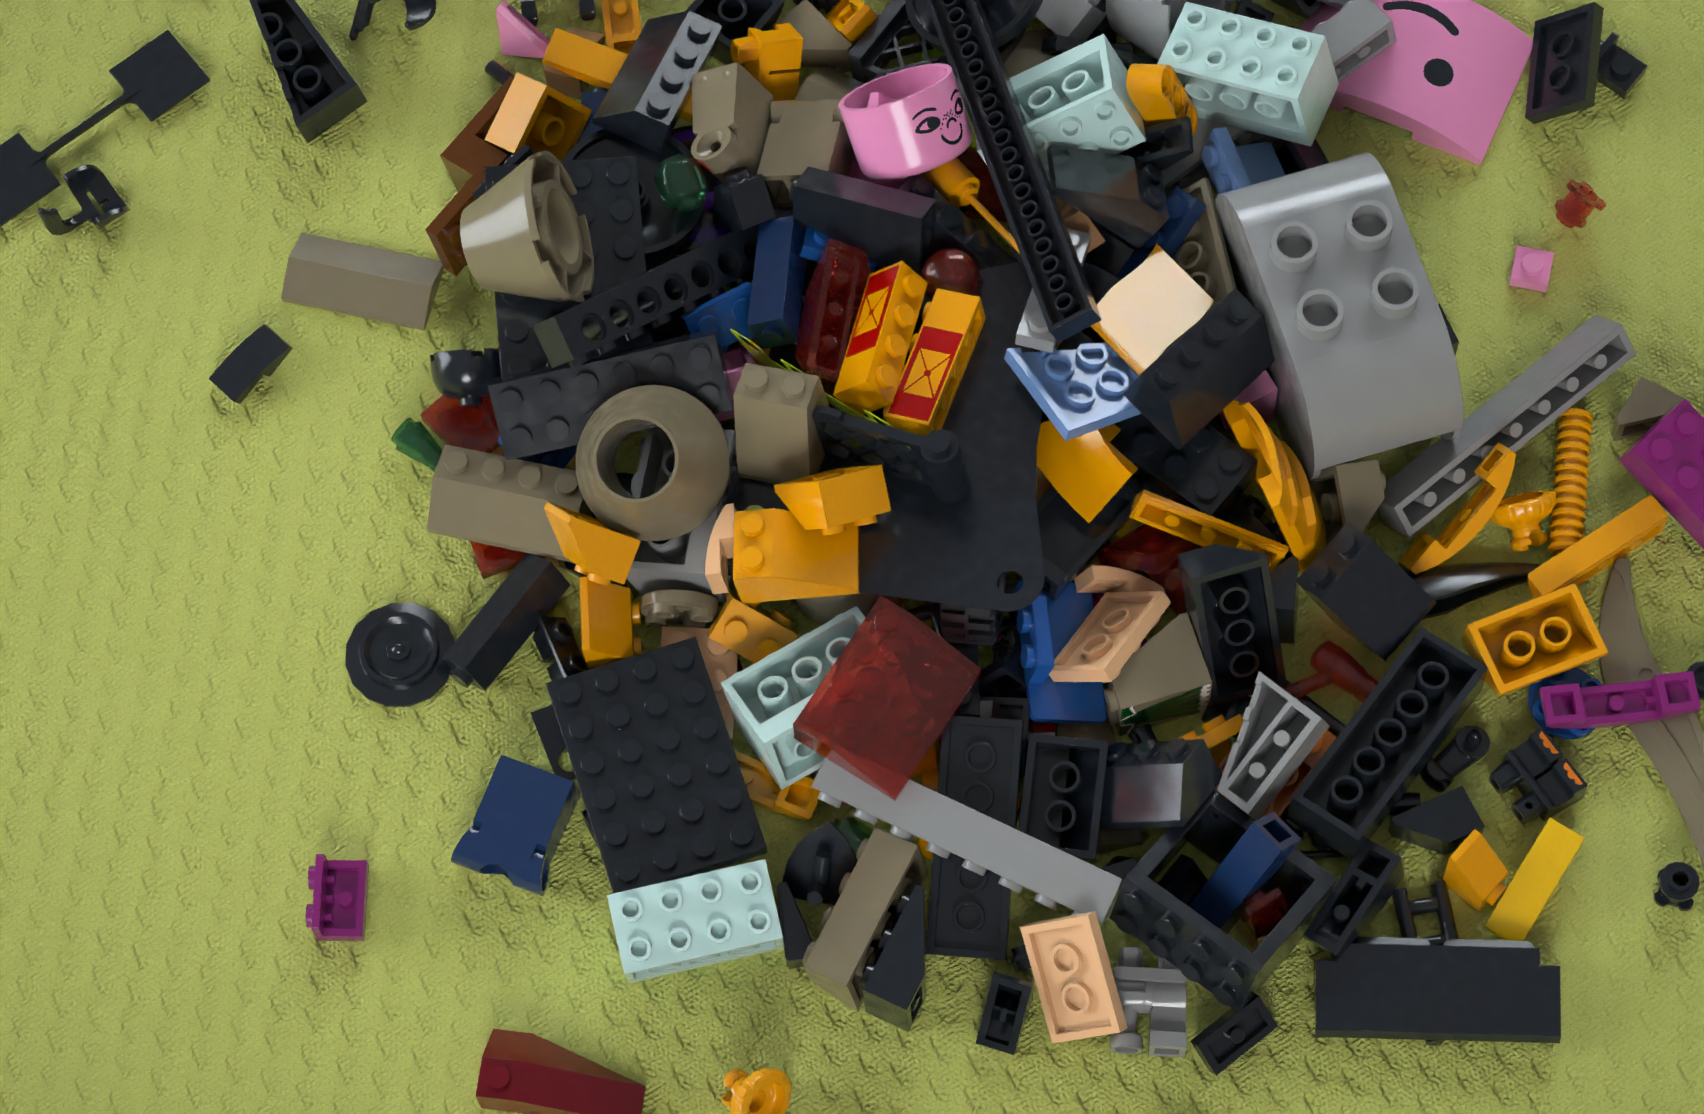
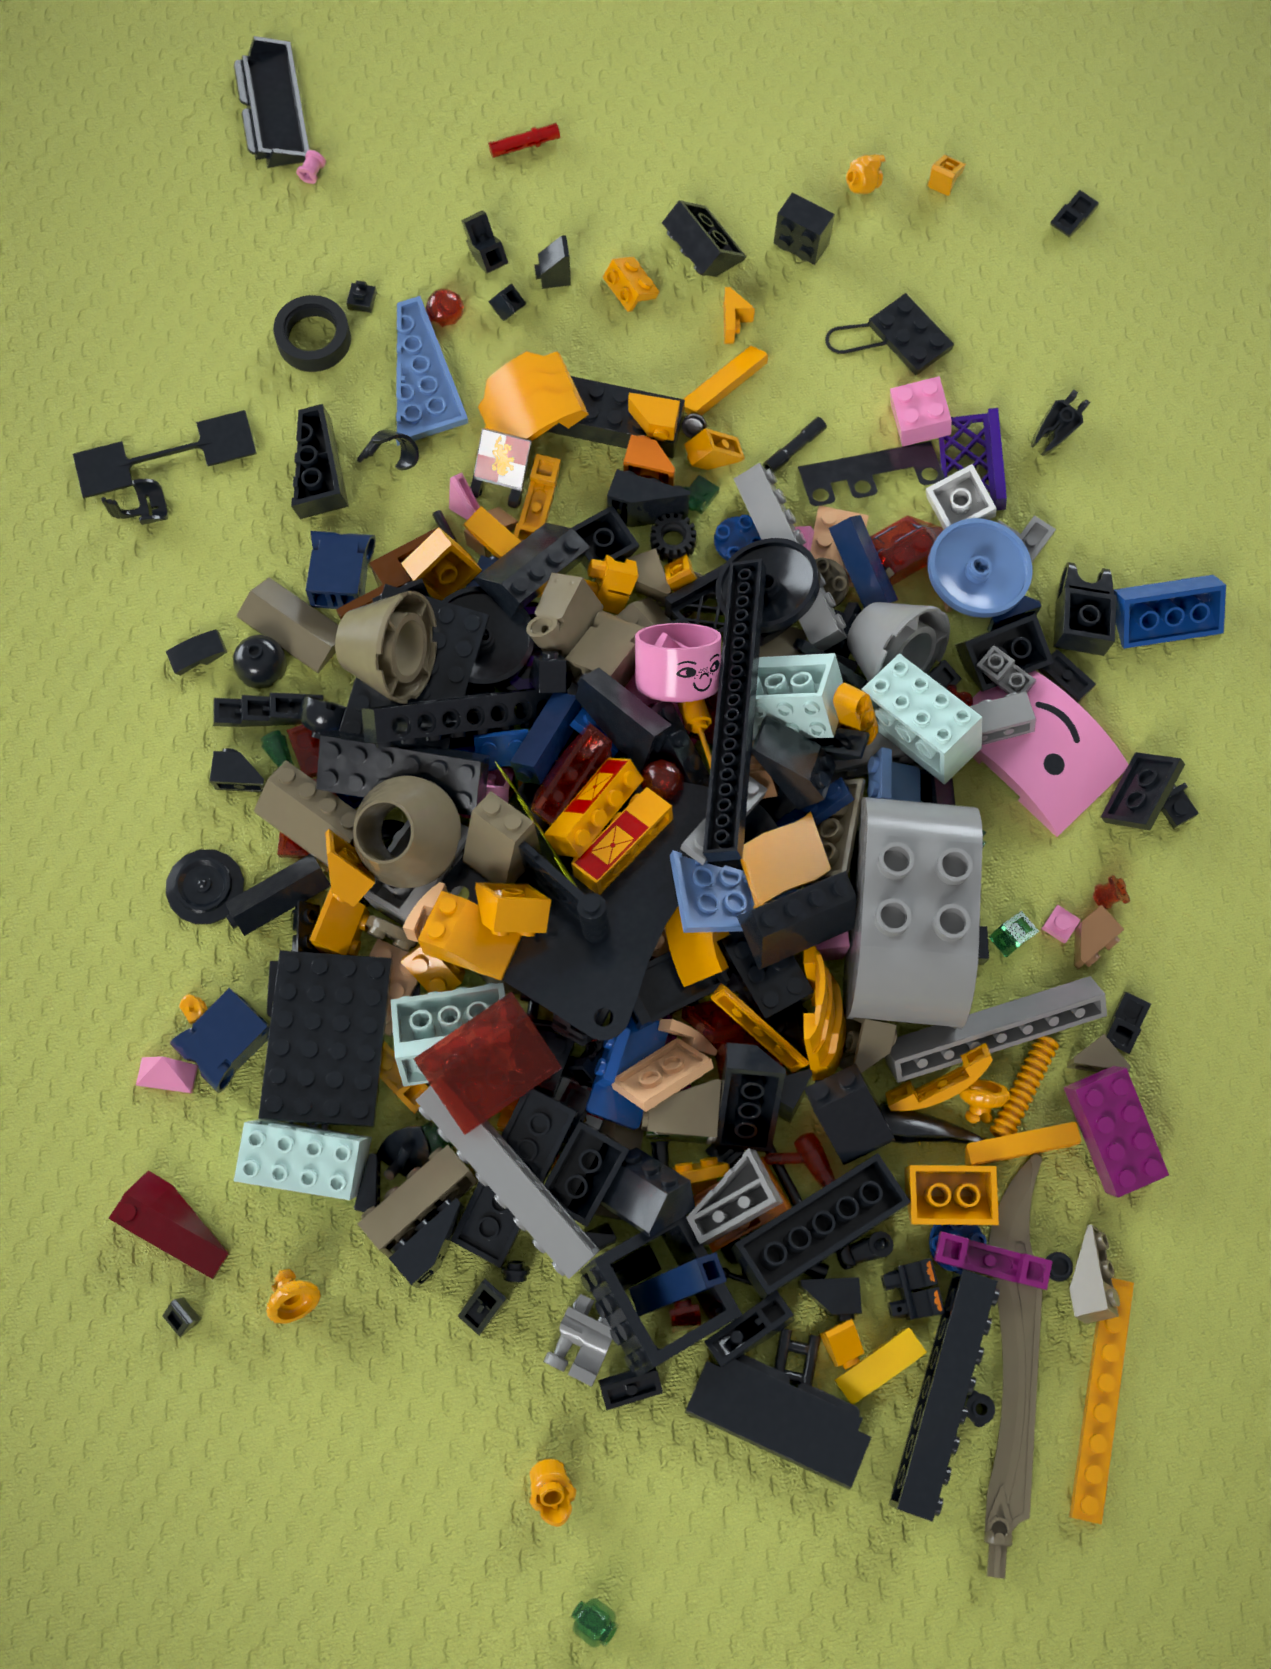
camera: 15 degrees right, 5 degrees up
(338, 899) = (86, 1039): magenta bracket -> none
(341, 343) = (259, 661): none -> black cylinder
(373, 404) = (259, 710): none -> black slope
(379, 494) = (234, 773): none -> black slope
(393, 184) = (338, 568): none -> dark blue piece
(458, 807) = (192, 1007): none -> light orange piece
(460, 901) = (167, 1074): none -> bright pink slope
(681, 183) = (513, 644): clear green head -> none
(1073, 977) = (536, 1305): light nougat plate -> none
(1476, 303) = (1013, 933): none -> clear green bracket
(1578, 263) = (1094, 934): none -> medium nougat slope
(1627, 880) = (944, 1394): none -> black brick
(1665, 353) = (1127, 1022): none -> black slope

